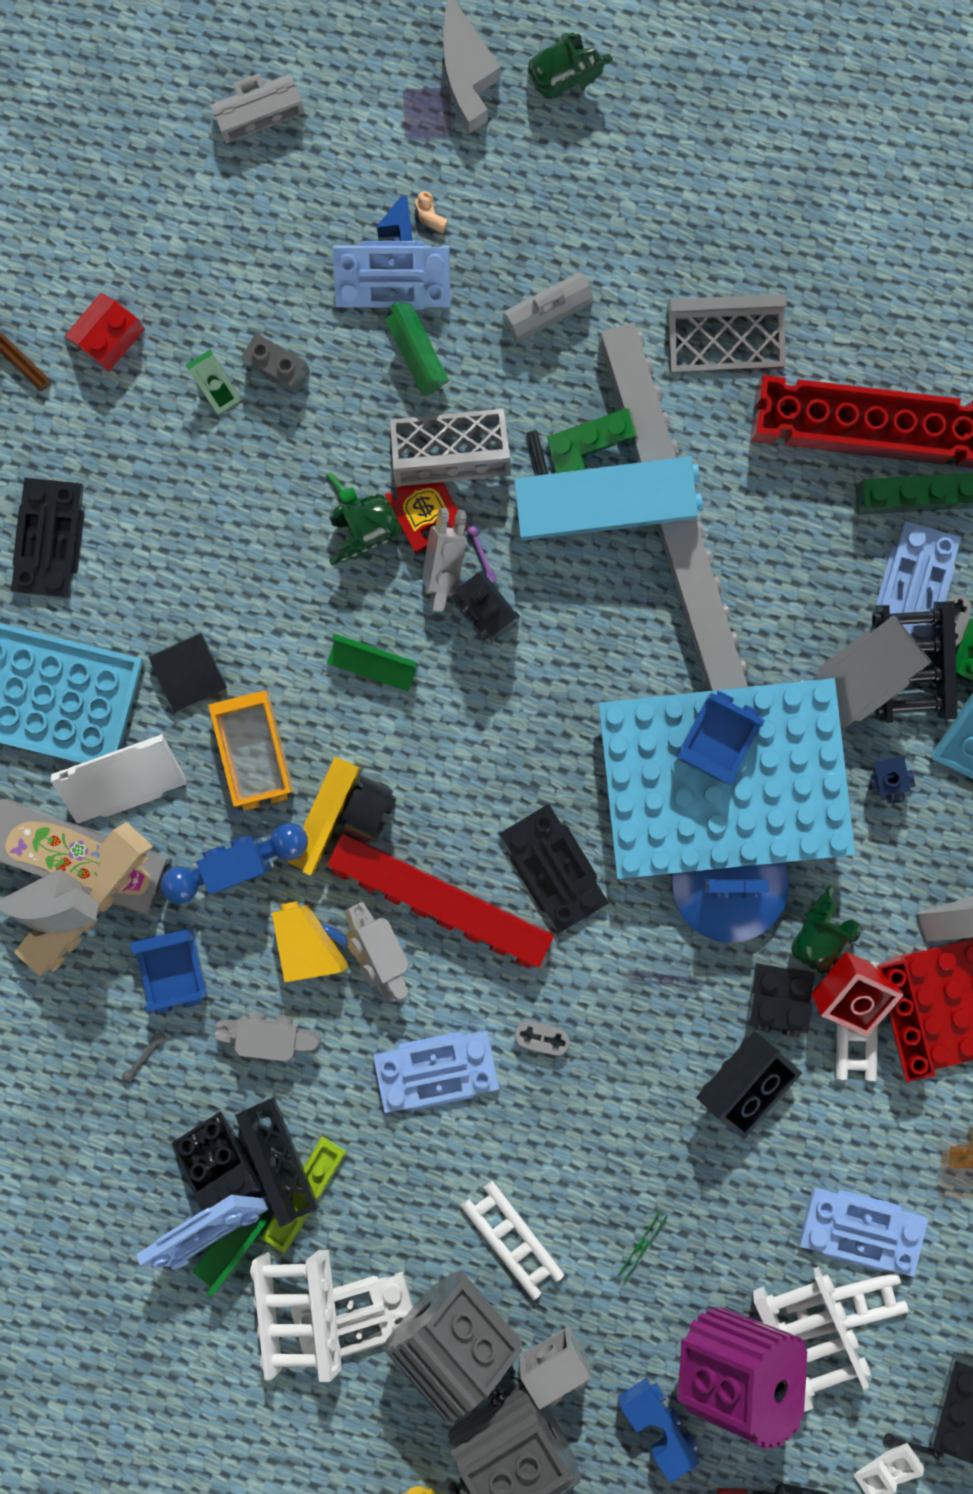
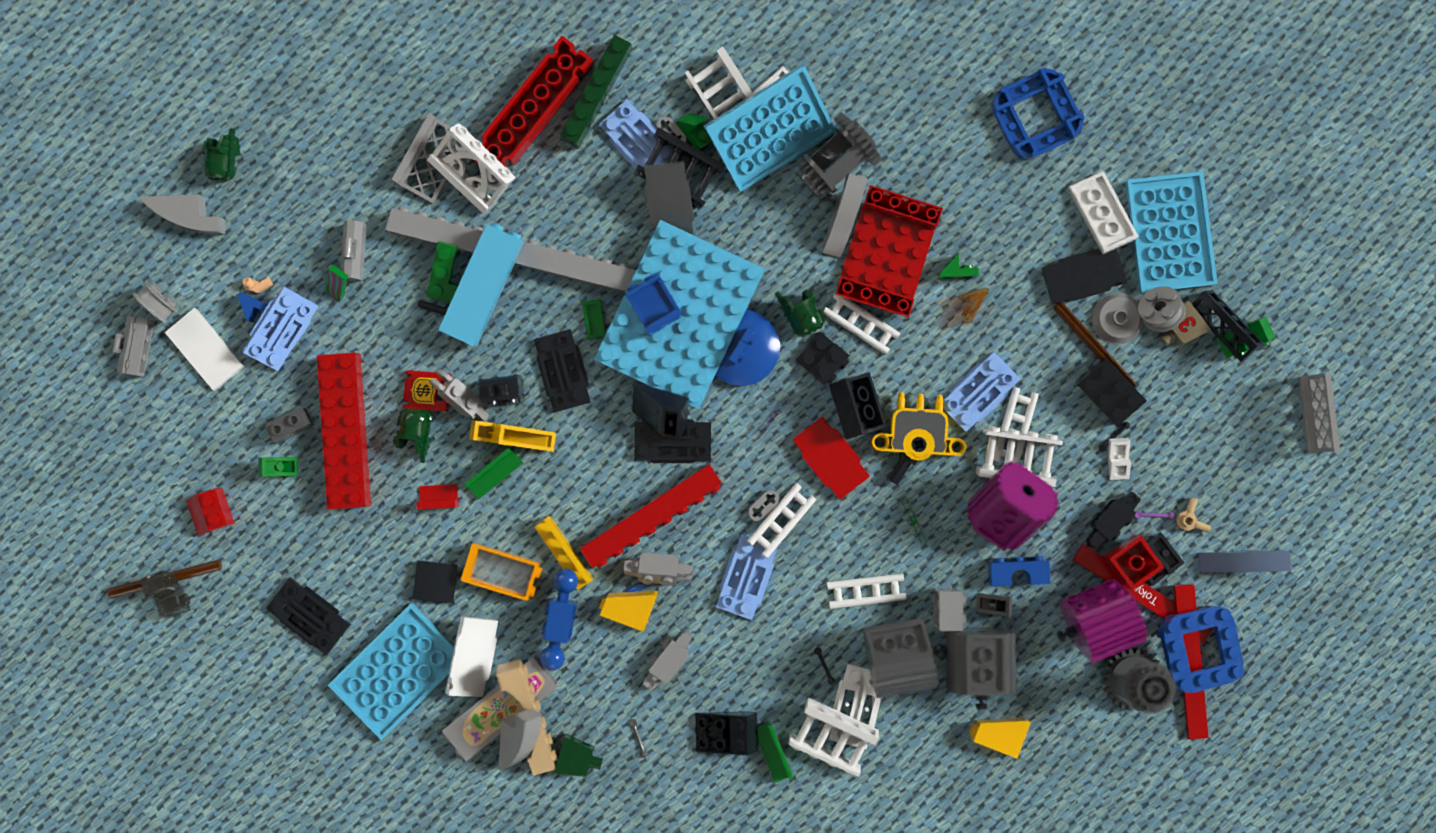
camera: 60 degrees left, 0 degrees up
(70, 993) = (576, 757): none -> dark green torso
(170, 970) = (597, 693): blue panel -> none
(201, 1231) = (753, 761): light blue piece -> none
(267, 1166) = (741, 704): black fence -> none
(298, 609) = (438, 496): none -> red panel
(306, 197) = (204, 349): none -> white tile
(310, 437) = (343, 430): none -> red brick
(319, 1171) = (770, 693): lime tile -> none
(329, 96) = (155, 302): none -> light grey wheel
(347, 496) = (390, 429): green hand -> none
(366, 810) = (574, 526): black brick -> none
(368, 1264) = (818, 651): none -> black hinge
(416, 348) = (330, 339): green panel -> none
(427, 112) = (198, 250): piece -> none
(435, 657) = (512, 435): none -> yellow slope
(451, 464) = (409, 359): light grey fence -> none
(473, 532) = (455, 371): medium lavender hinge -> none
(493, 310) = (336, 283): none -> green tile
(527, 1058) = (781, 508): none -> white bar
(557, 669) = (562, 370): none -> black piece
(586, 829) = (661, 410): none -> black slope
(597, 1423) = (994, 604): none -> dark grey slope
(649, 669) = (594, 319): none -> green tile
(658, 1089) = (831, 458): none -> red piece
(768, 411) = (456, 175): none -> white fence
(774, 1186) = (915, 425): none -> piece
(855, 994) = (843, 316): red slope -> none
(895, 770) = (732, 222): dark blue brick -> none

